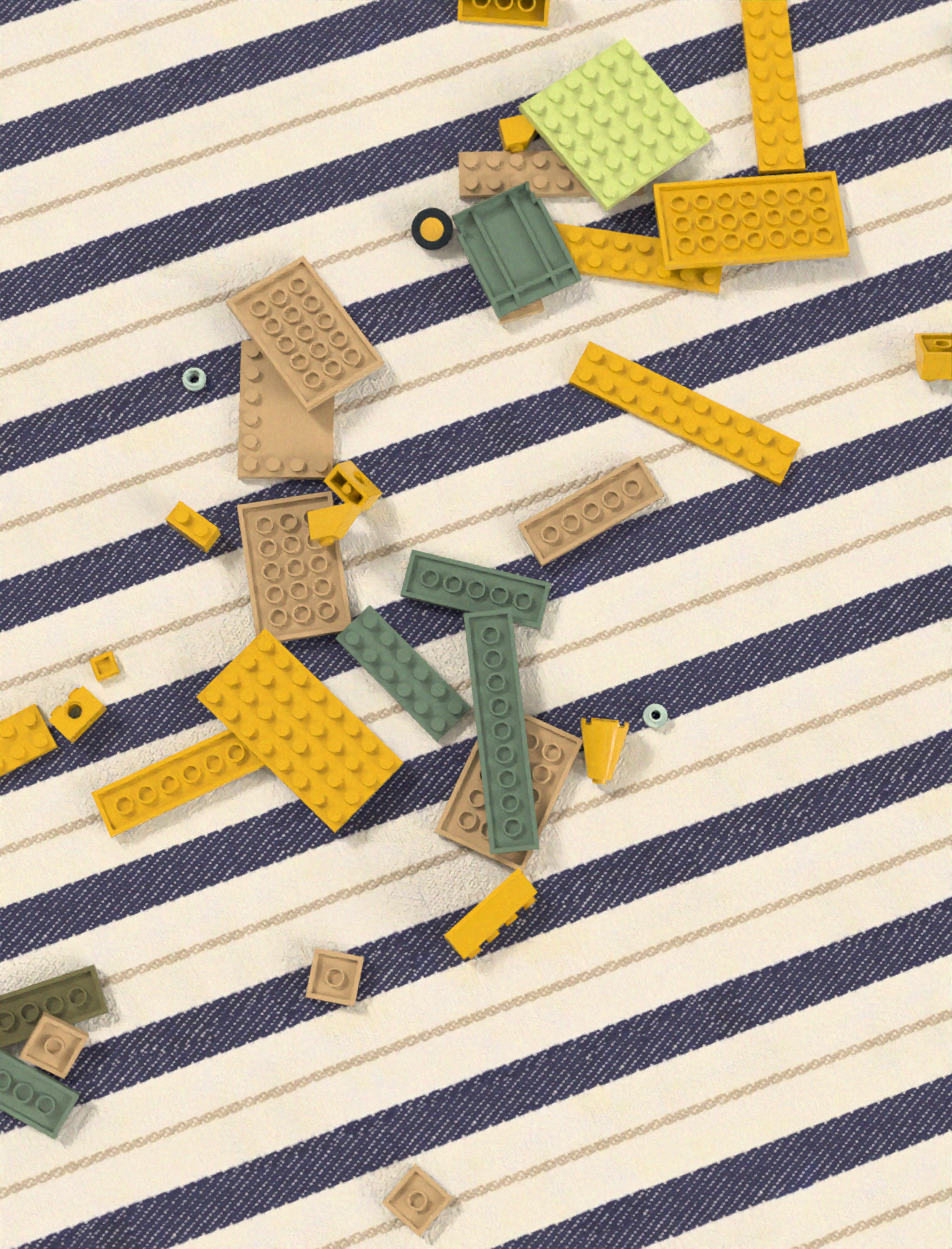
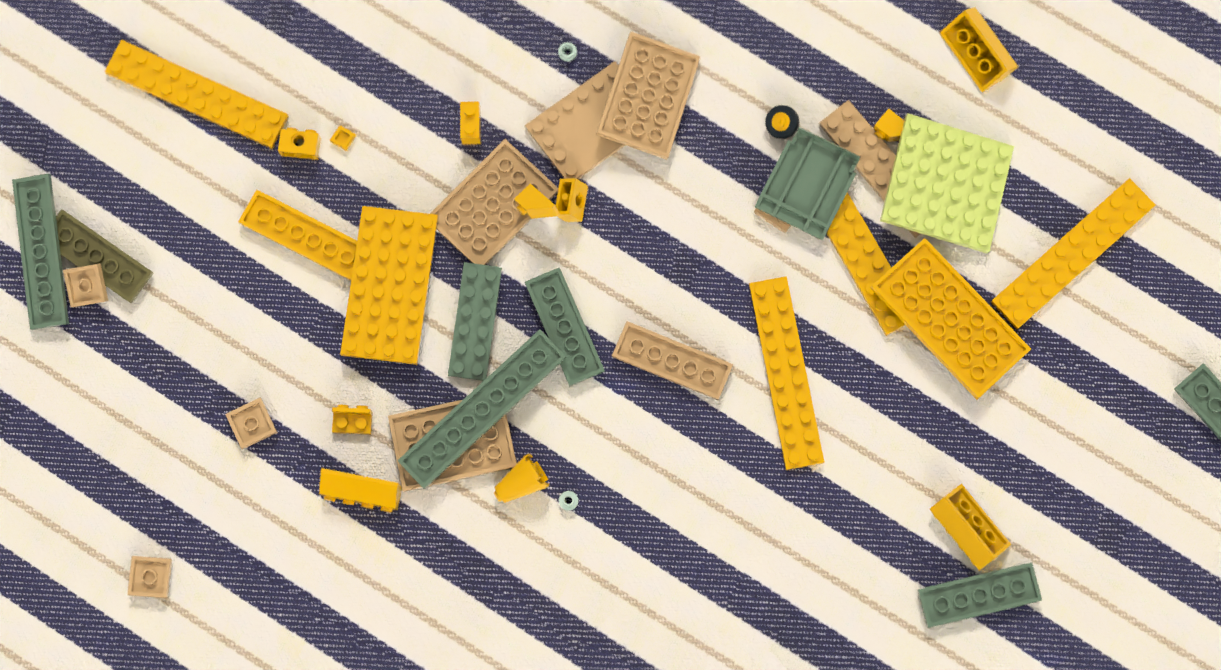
camera: 60 degrees right, 0 degrees up
(410, 871) = (352, 420): none -> yellow bracket

